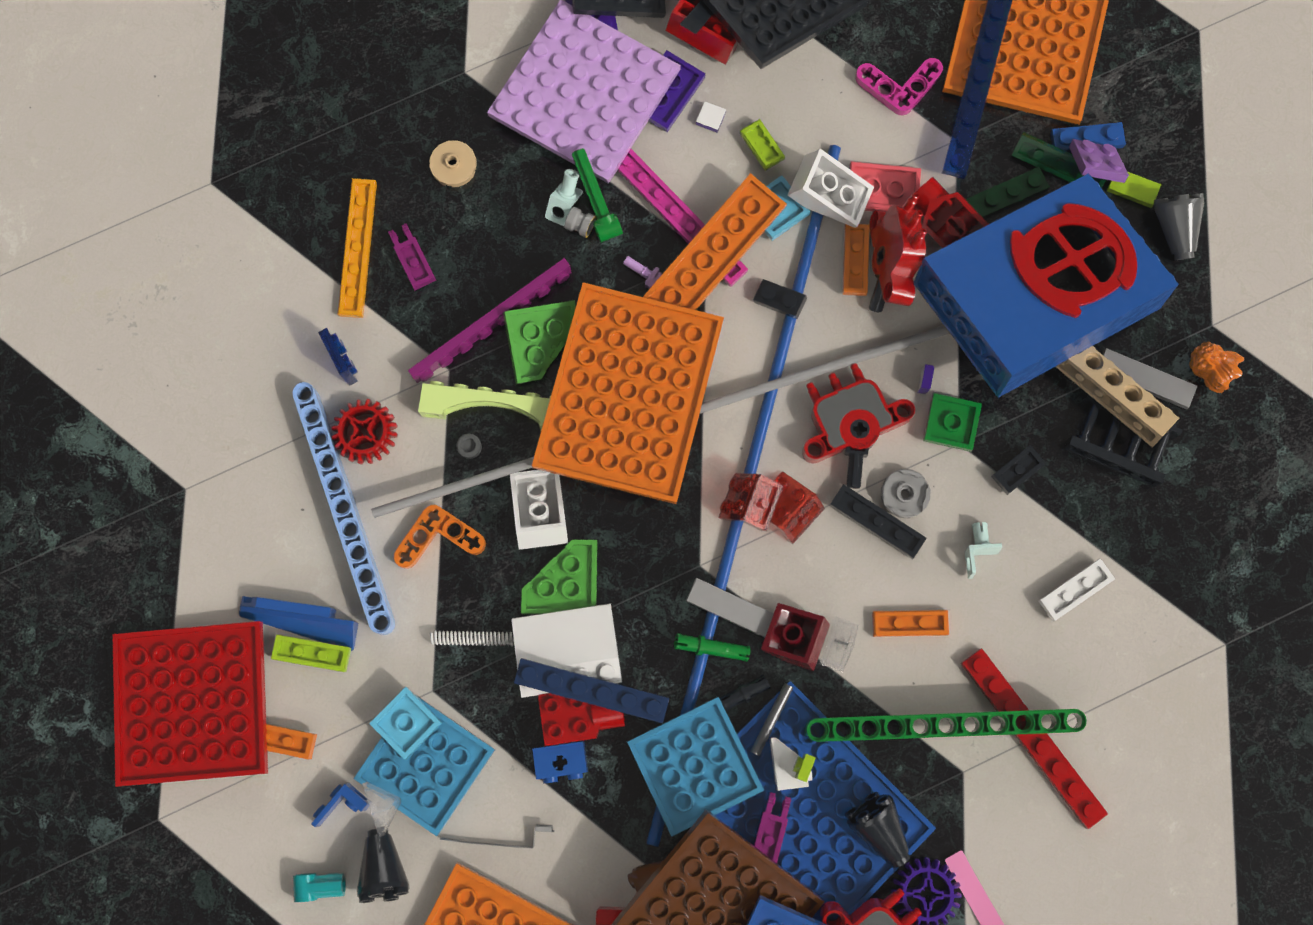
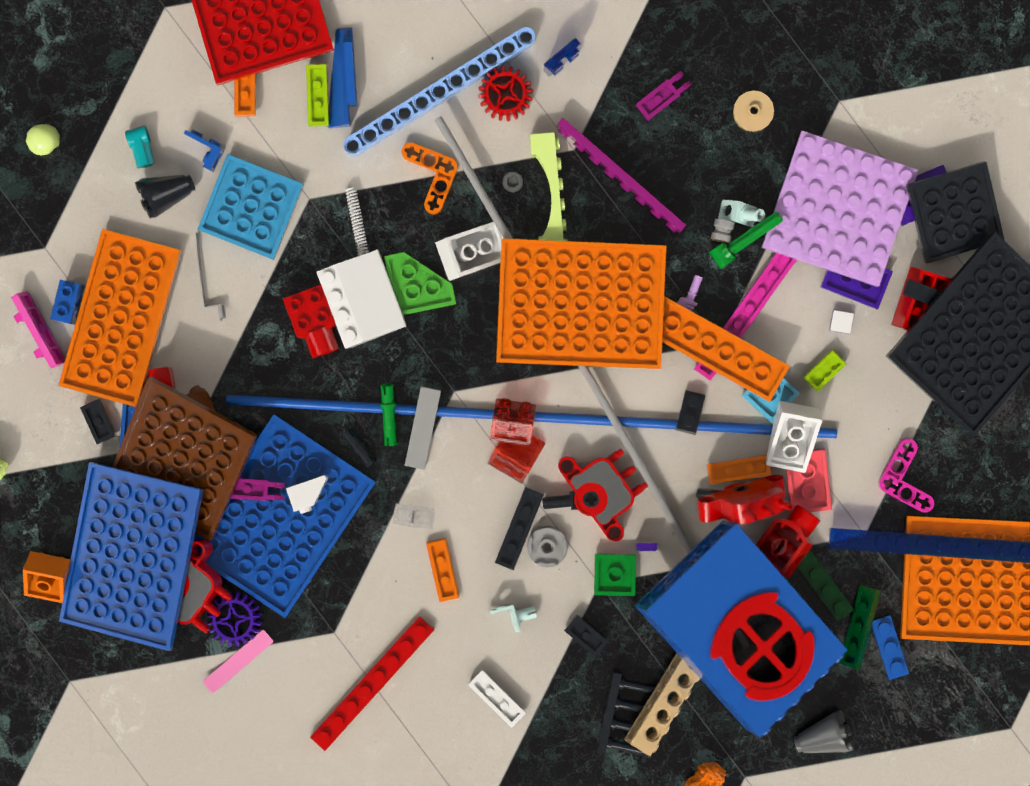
camera: 70 degrees right, 10 degrees up
(357, 248) = (662, 48): light orange tile -> none
(382, 806) = (210, 182): clear slope -> none
(405, 723) = (277, 185): medium azure plate -> none
(537, 337) = (614, 218): bright green plate -> none
(545, 757) = (264, 306): blue brick -> none
(591, 690) = (332, 326): dark blue plate -> none
(695, 766) = (292, 420): dark azure plate -> none
(771, 719) = (341, 473): flat silver bar -> none
(796, 636) = (411, 479): dark red slope -> none
(803, 767) = (306, 504): lime plate -> none
(880, 827) = (274, 573): black cone -> none
(956, 720) = (363, 620): green beam -> none
(1098, 160) = (866, 658): medium lavender plate -> none
(1136, 189) = (852, 692): lime tile -> none
(1155, 381) = (686, 730): light grey tile -> none

